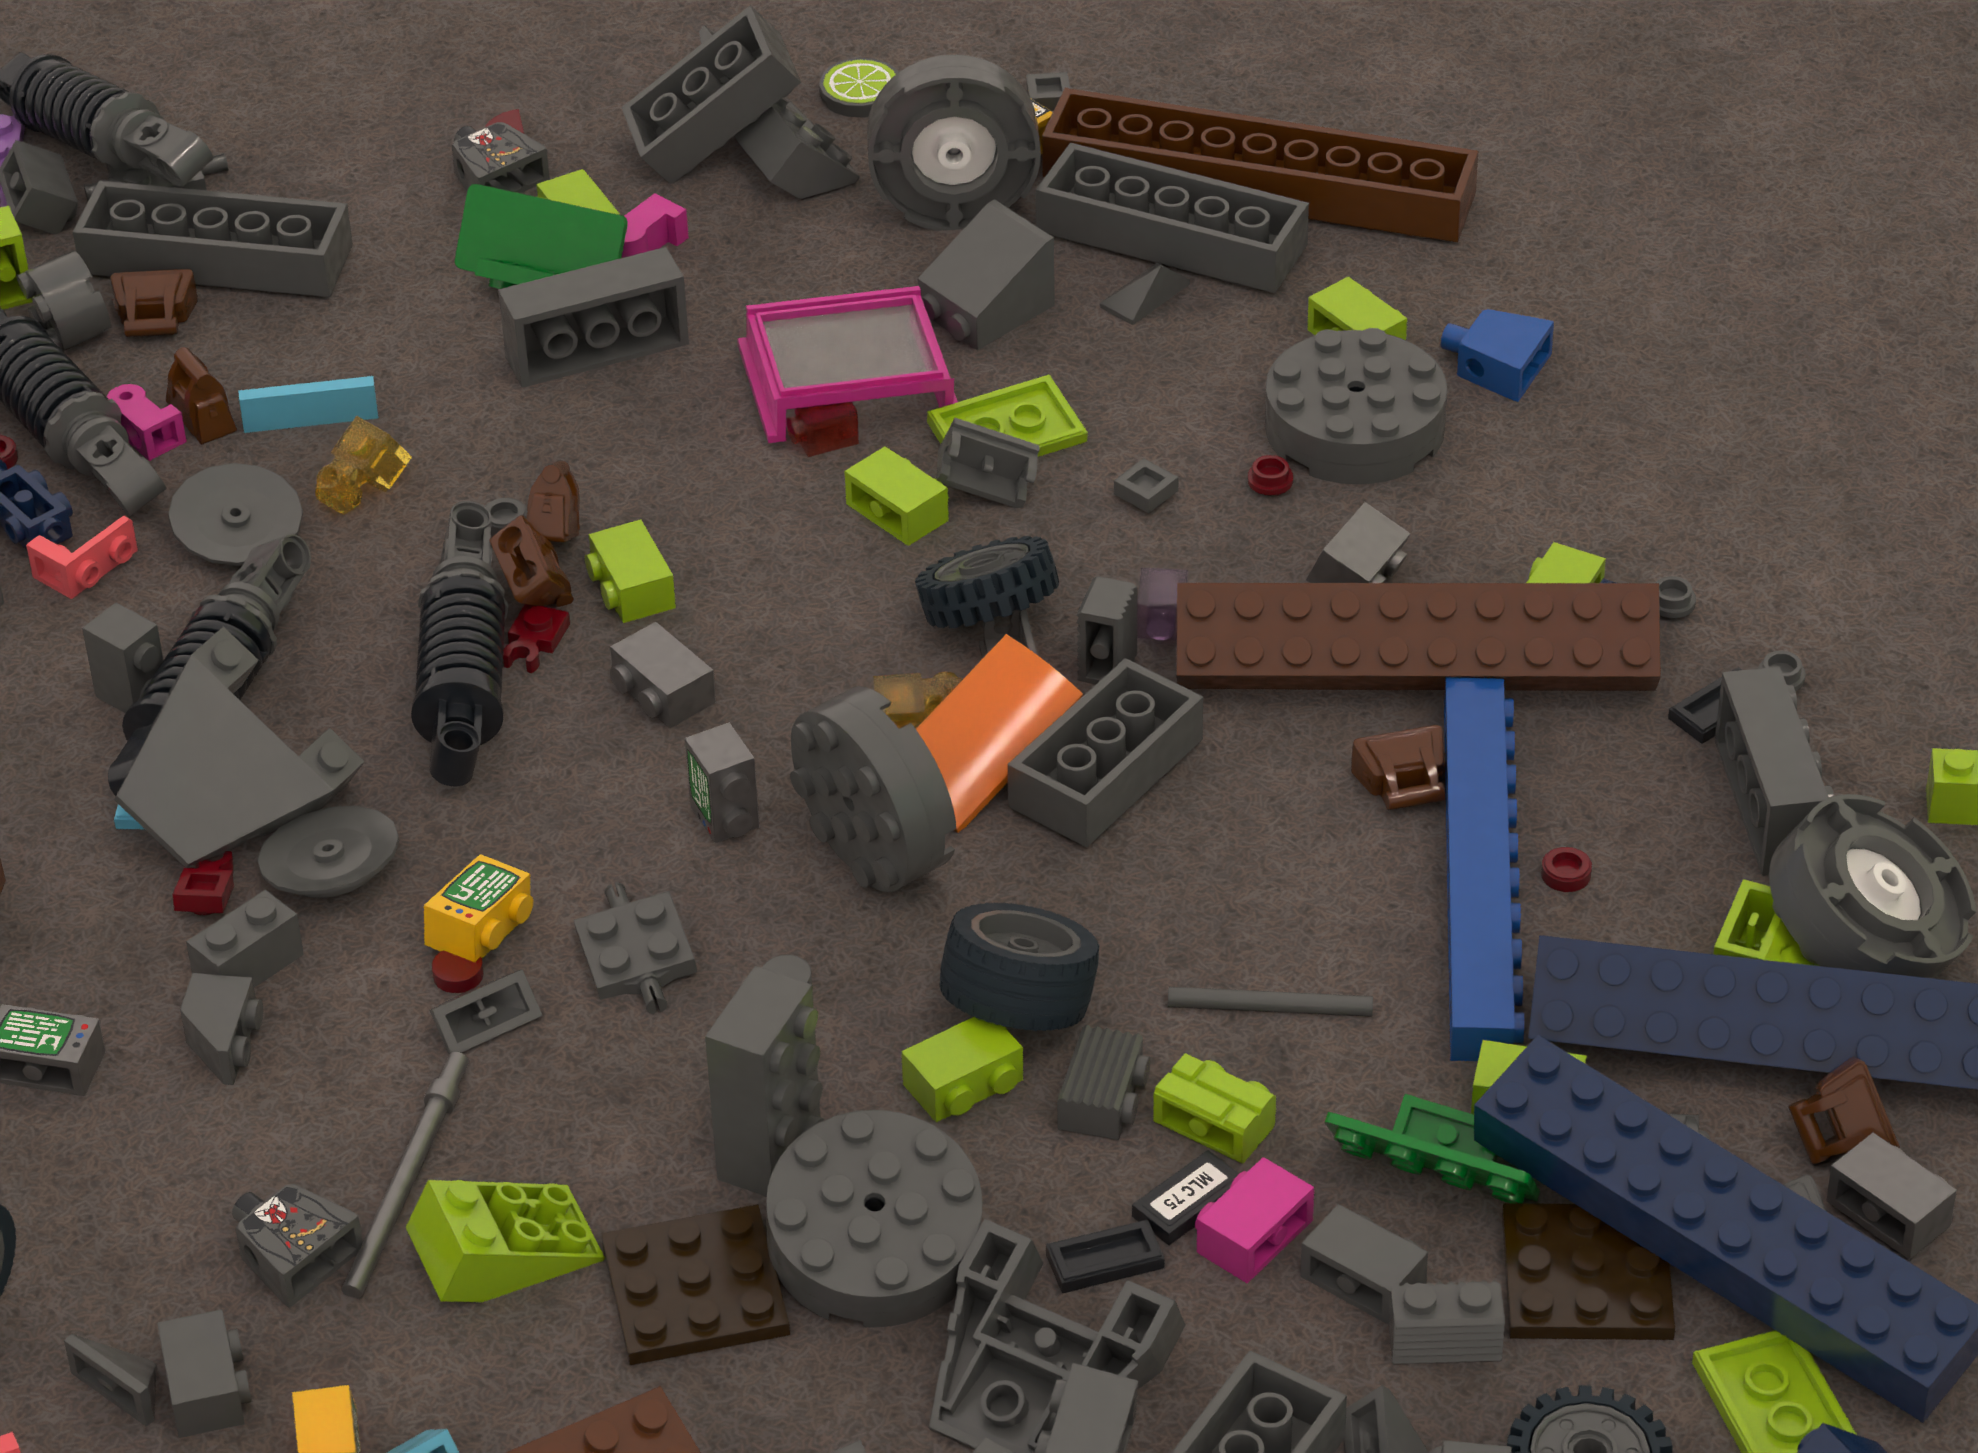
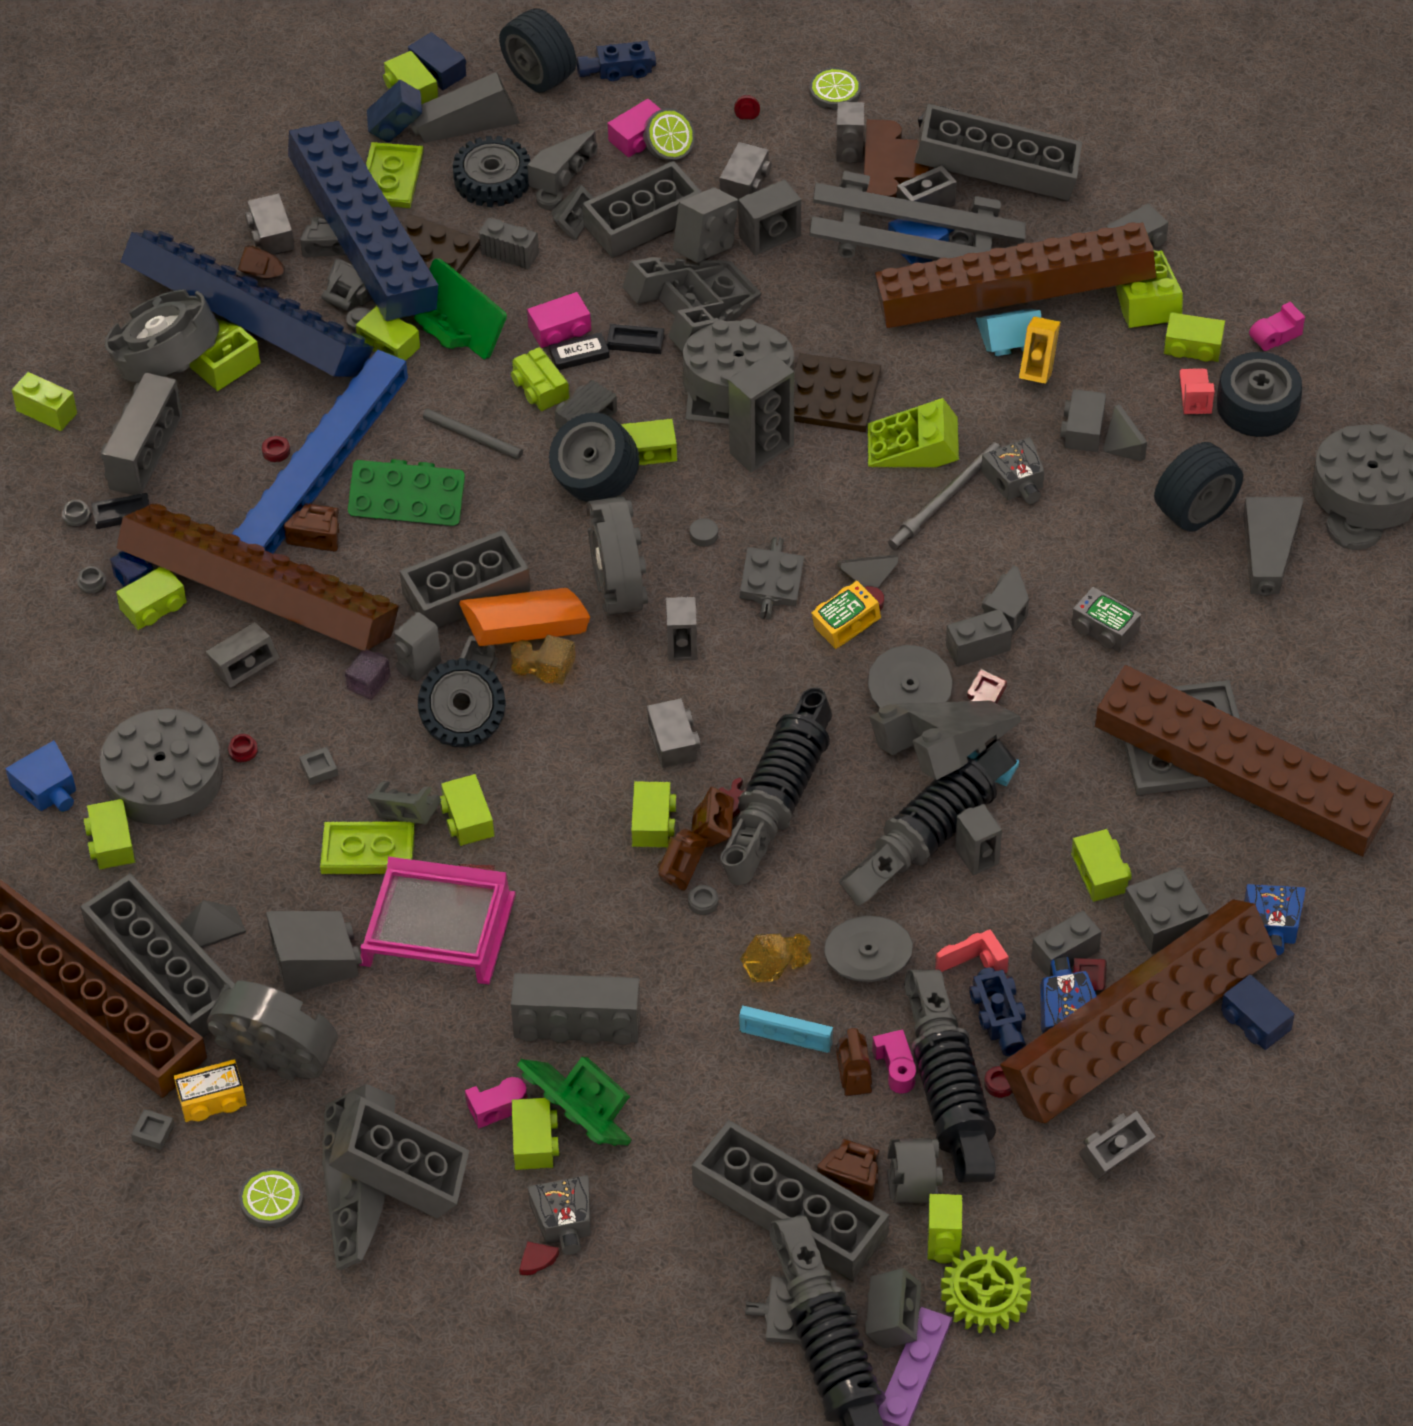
camera: 155 degrees left, 10 degrees up
(1303, 872) = (406, 492): none -> green bracket
(1360, 1261) = (523, 282): dark grey brick -> none

